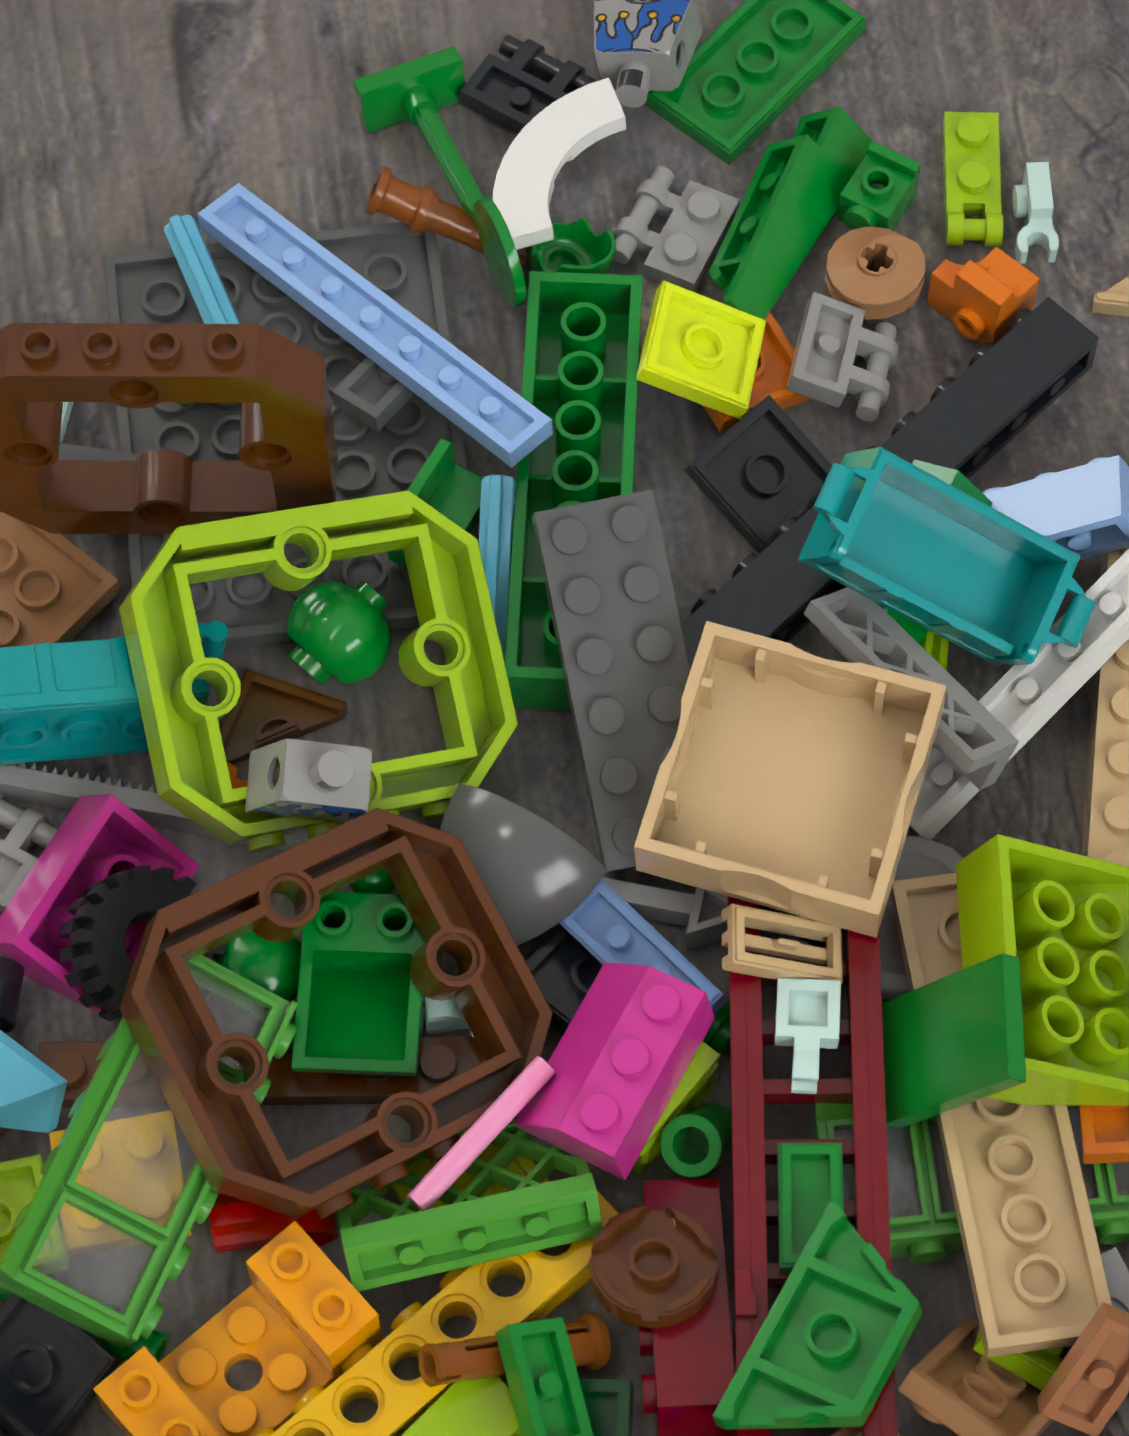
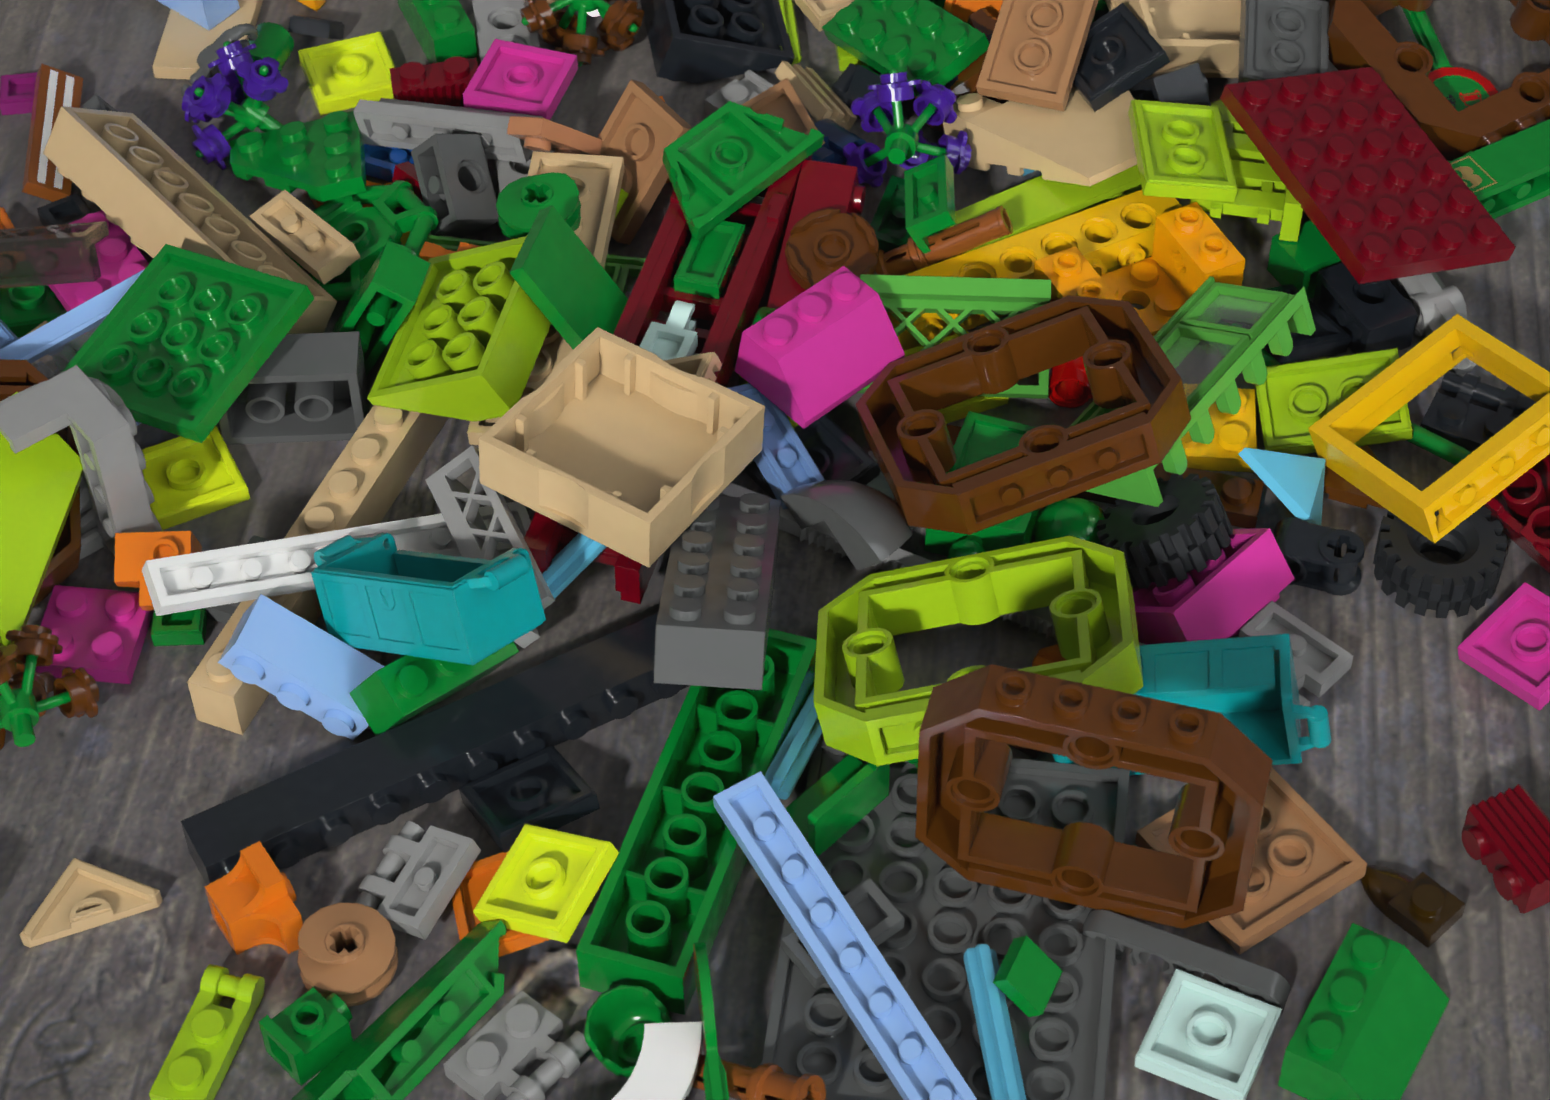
camera: 165 degrees left, 15 degrees down
(313, 783) = (1003, 525): light grey torso -> none
(481, 1134) = (931, 336): bright pink bar -> none
(1035, 205) = (164, 984): light aqua plate -> none
(1051, 1221) = (524, 198): none -> green piece

